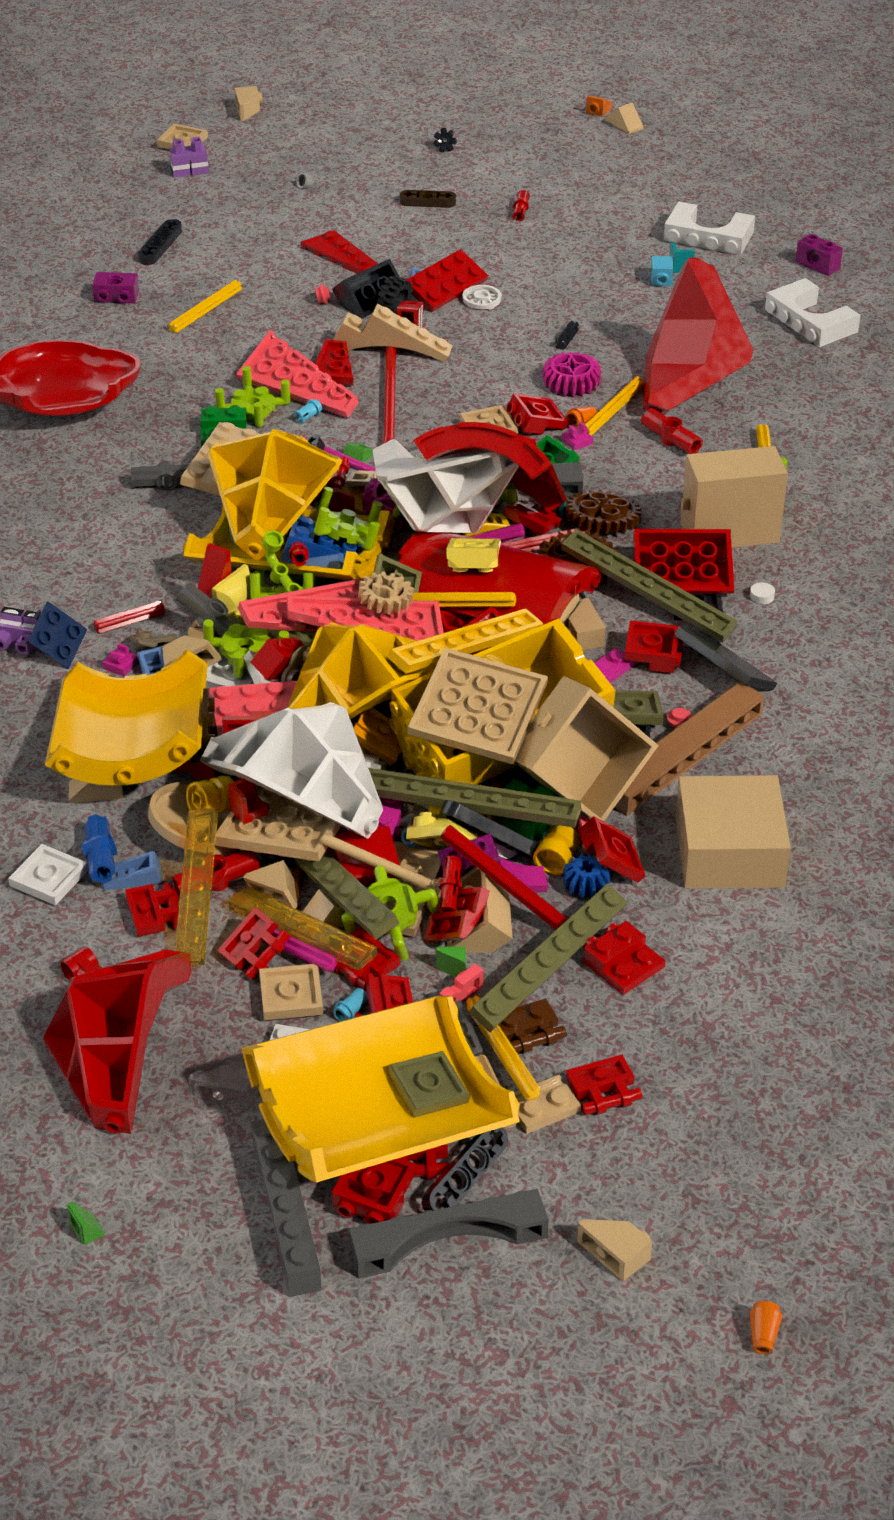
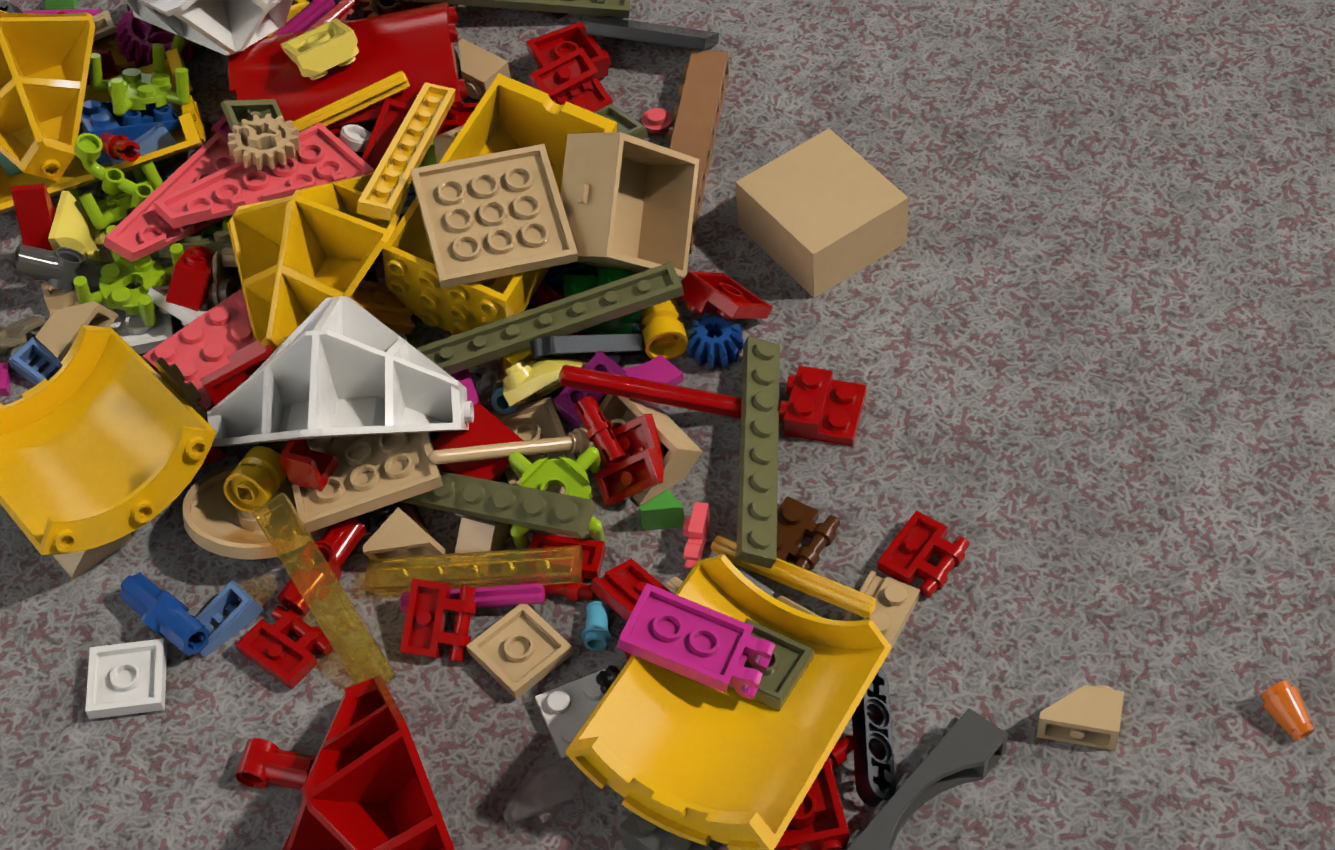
camera: 30 degrees left, 10 degrees up
(386, 1037) = (695, 642): none -> dark pink tile
(455, 621) = (355, 137): none -> white tile
(633, 665) = (572, 80): none -> red slope

